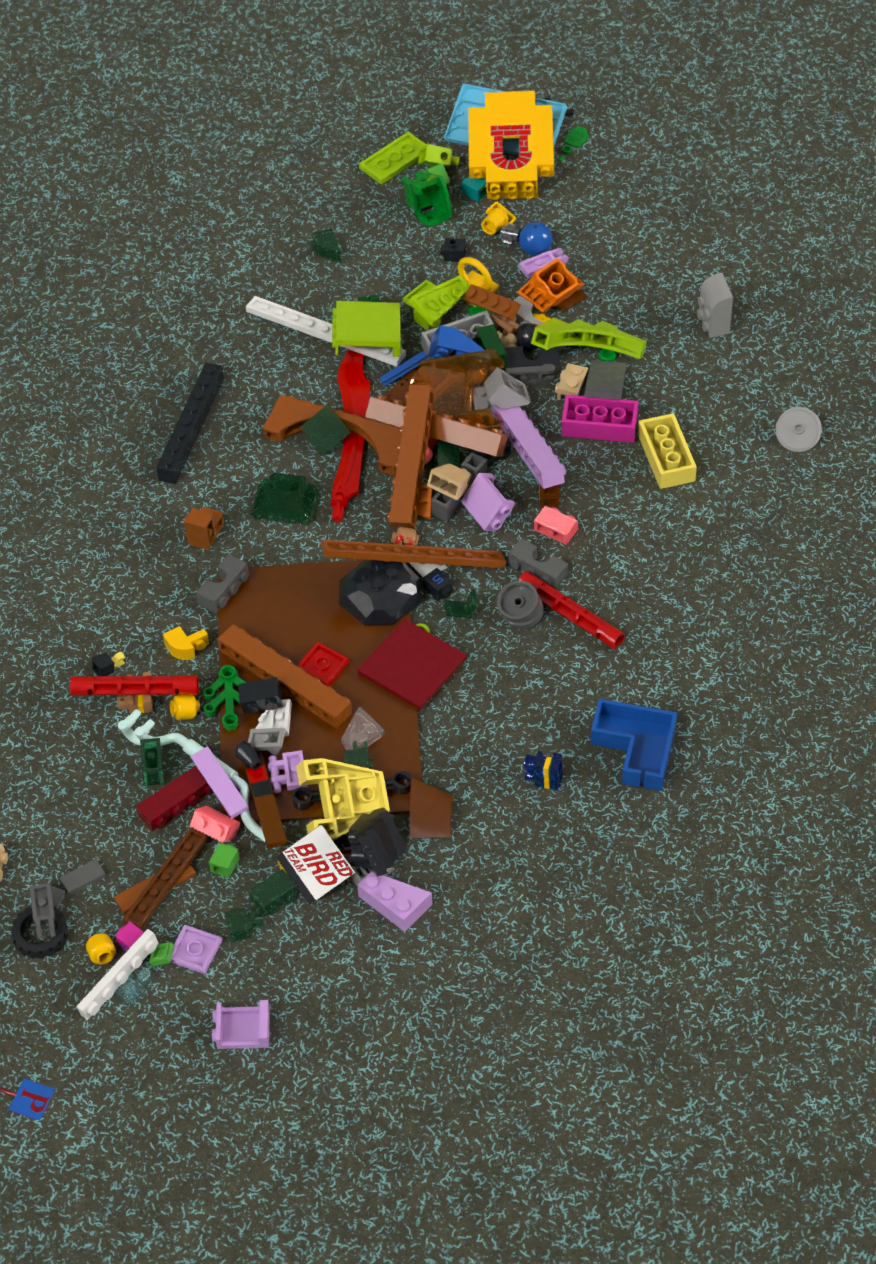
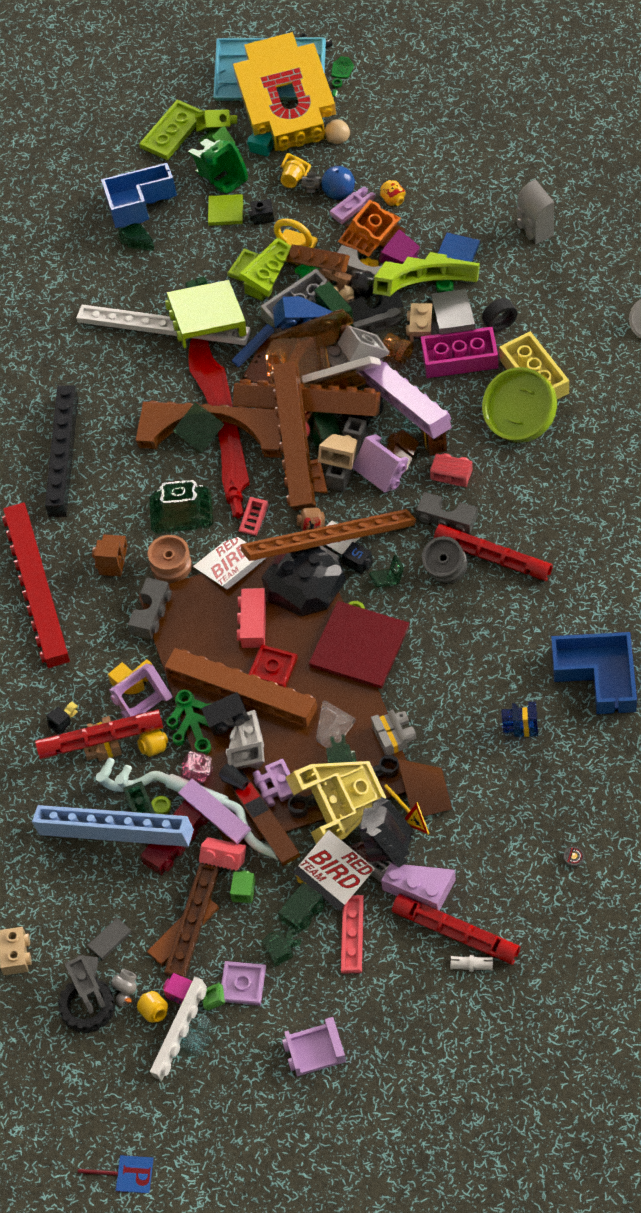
camera: 10 degrees left, 5 degrees up
(82, 921) = (126, 985): none -> light grey animal
(119, 772) = (113, 825): none -> light blue brick
(124, 539) = (36, 586): none -> red brick
(173, 767) = (161, 805): none -> lime tile
(200, 639) = (161, 691): none -> lavender panel
(217, 738) = (196, 767): none -> clear pink brick
(257, 543) = (169, 558): none -> nougat wheel
(310, 563) = (227, 563): none -> sticker
(314, 931) = (352, 935): none -> coral tile
(317, 615) = (252, 617): none -> coral brick
(333, 203) = (131, 191): none -> blue piece
(354, 511) = (256, 503): none -> coral slope
(411, 835) = (414, 816): none -> piece
(413, 752) = (390, 733): none -> light grey hips
(416, 949) = (455, 929): none -> red piece
(420, 985) = (472, 963): none -> white pin
(421, 241) = (225, 210): none -> lime tile
(497, 405) = (359, 365): none -> white tile
(515, 490) = (401, 444): none -> reddish brown piece
(541, 401) = (398, 347): none -> clear orange wheel
(551, 193) = (337, 131): none -> tan hair
(554, 911) = (573, 857): none -> tile
(574, 309) = (399, 249): none -> magenta torso
(585, 259) = (392, 193): none -> yellow head
(634, 323) = (459, 247): none -> blue tile
(640, 478) = (519, 405): none -> lime brick
(647, 384) = (496, 308): none -> black tyre

